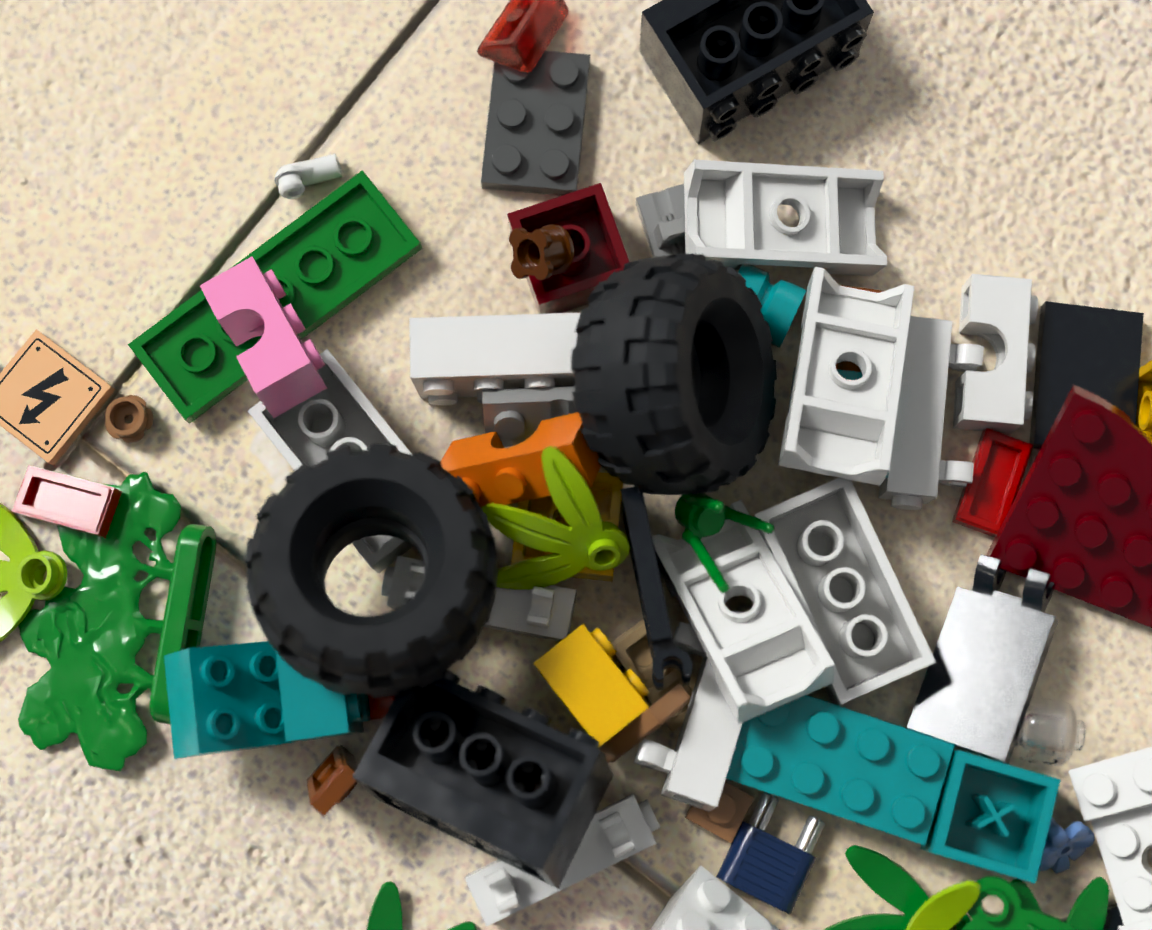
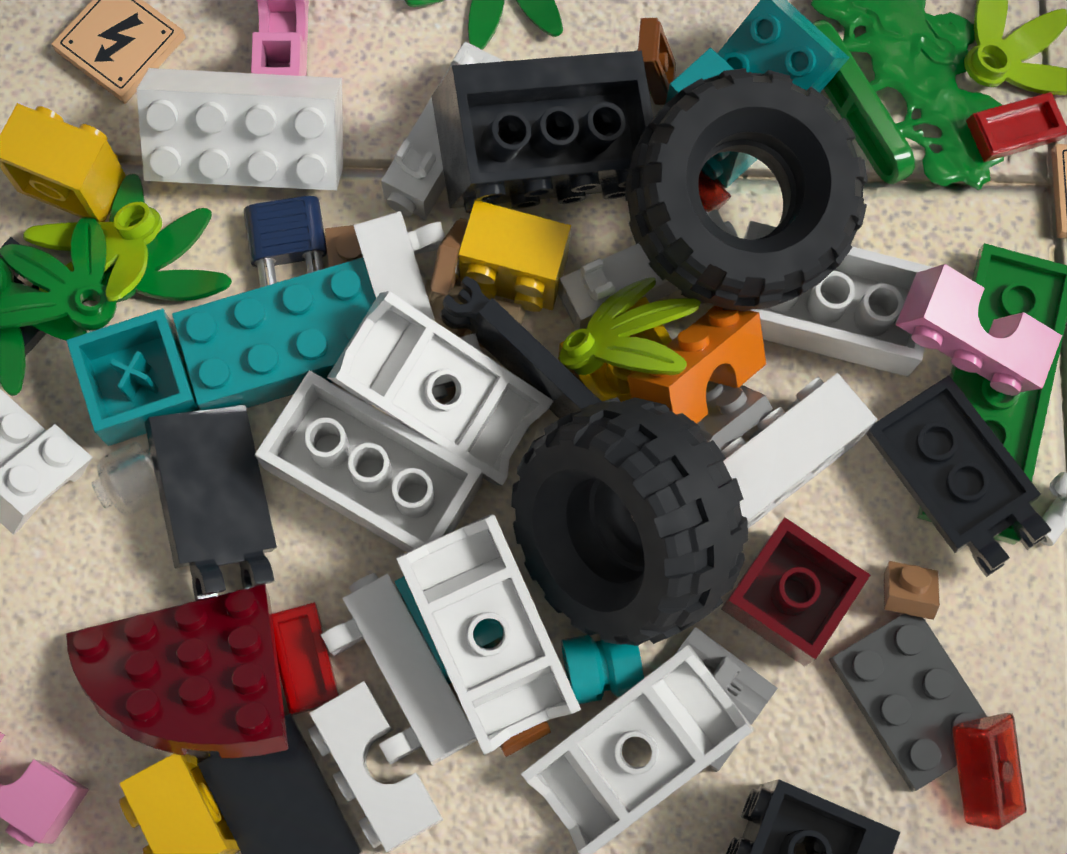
camera: 135 degrees right, 5 degrees down
(119, 410) = (1035, 210): medium nougat plate -> none
(367, 250) = (959, 473): none -> black tile
(475, 195) = (911, 590): none -> medium nougat plate
(541, 253) = (815, 550): reddish brown brick -> none
(705, 517) = (514, 441): green plant -> none
(1065, 844) = (63, 400): medium blue plant -> none

